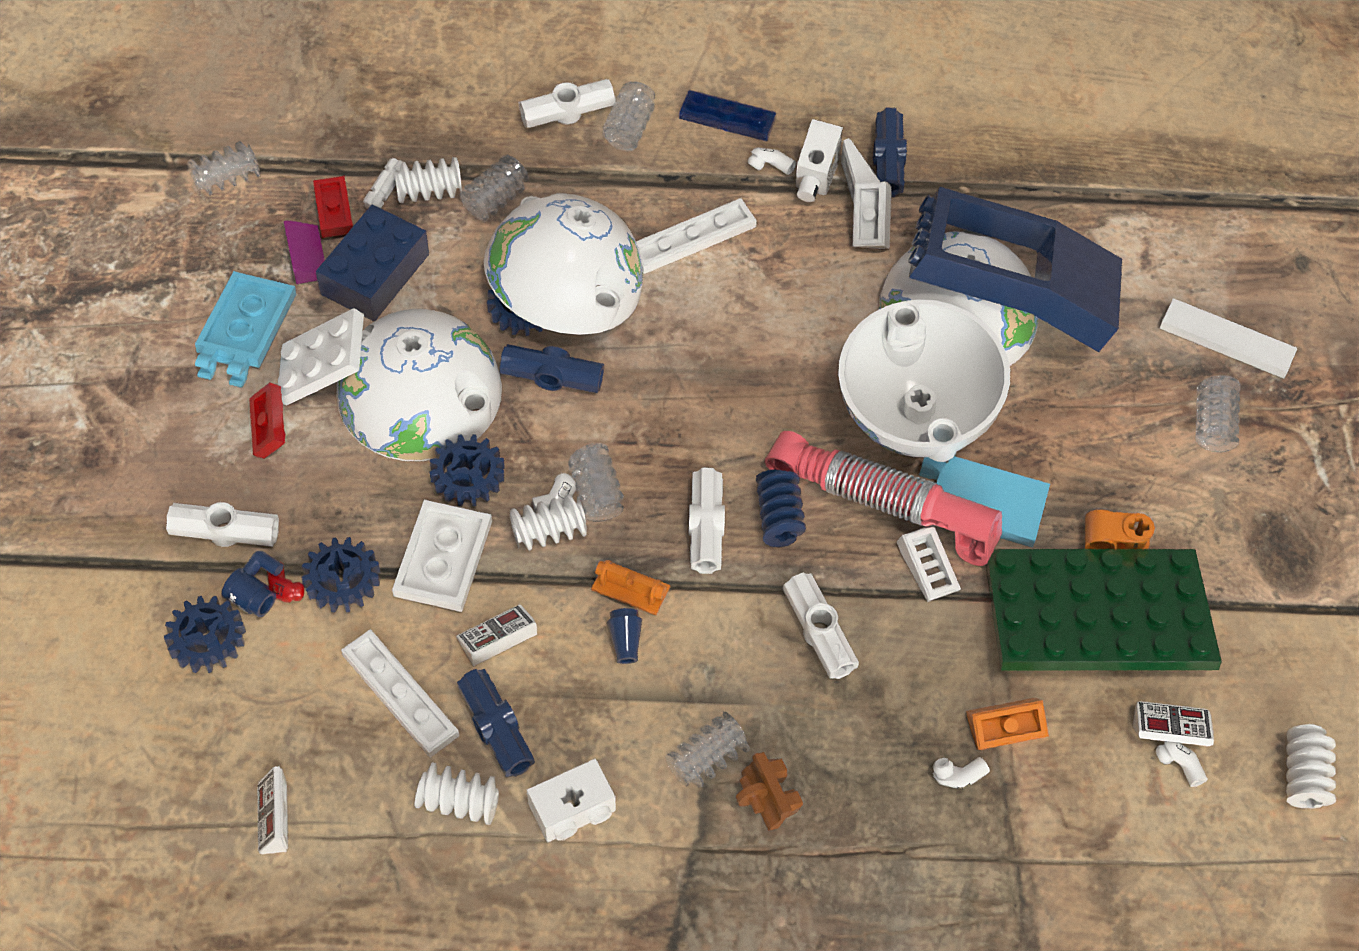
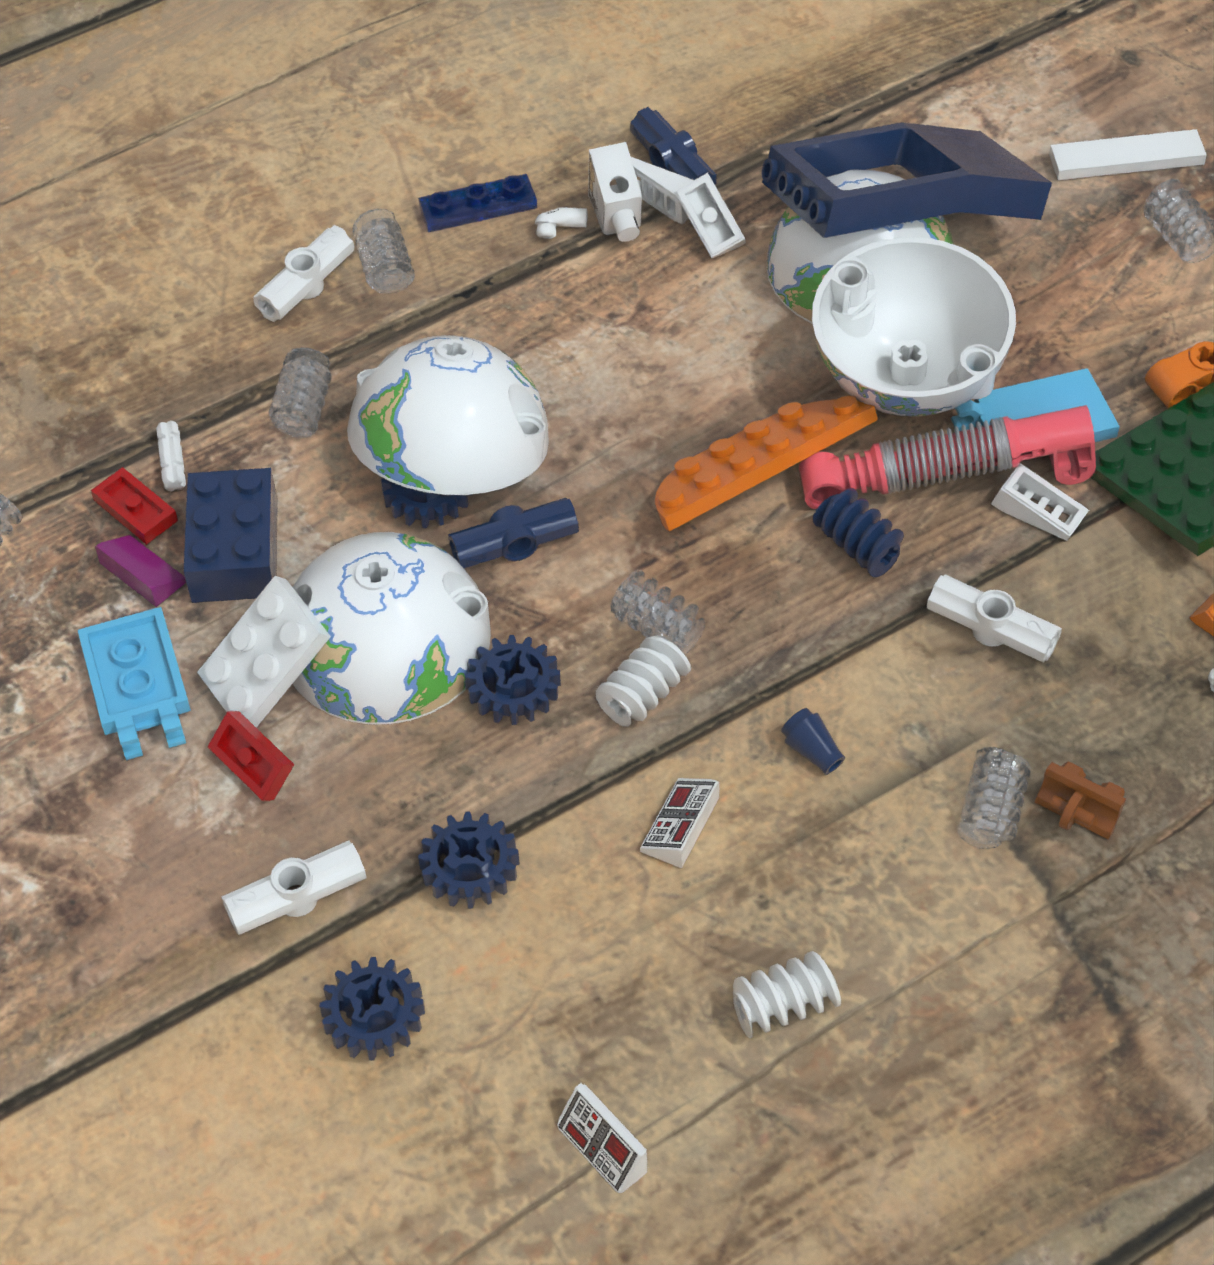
camera: 30 degrees left, 5 degrees down
(249, 592) = (382, 936): dark blue piece -> none
(284, 588) = (414, 912): red arm -> none
(400, 693) = (630, 939): white tile -> none
(428, 180) = (220, 419): white piece -> none
(442, 555) = (559, 778): white plate -> none
(495, 722) = (758, 903): dark blue piece -> none
(563, 486) = (626, 640): white arm -> none
(584, 787) = (885, 945): white brick -> none
(630, 587) = (777, 694): orange hinge -> none
(695, 235) = (550, 322): white tile -> none
(706, 520) = (798, 587): white piece -> none
(752, 409) = (756, 455): none -> orange plate

